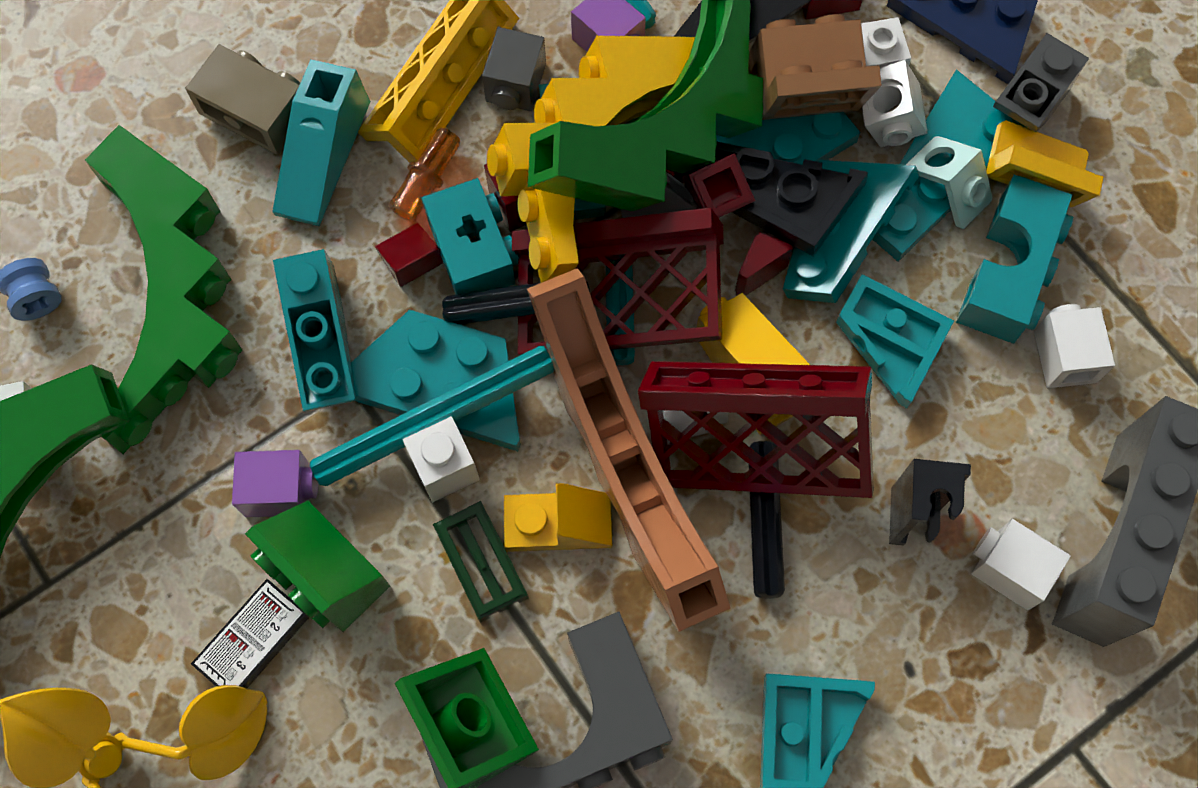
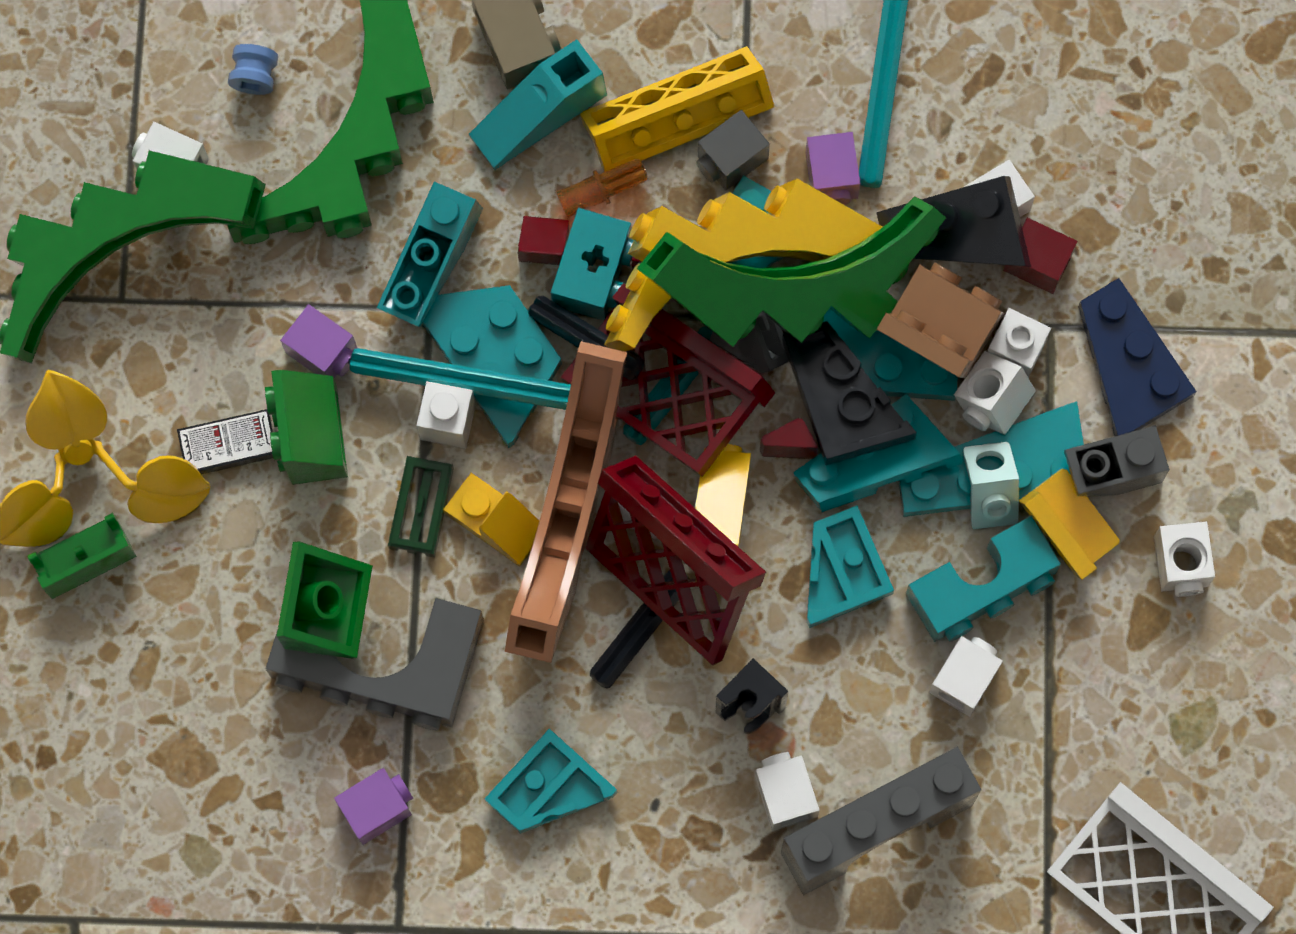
camera: 40 degrees right, 5 degrees up
(720, 186) = (795, 363): dark red slope -> none
(1147, 109) = (1186, 538): none -> white brick

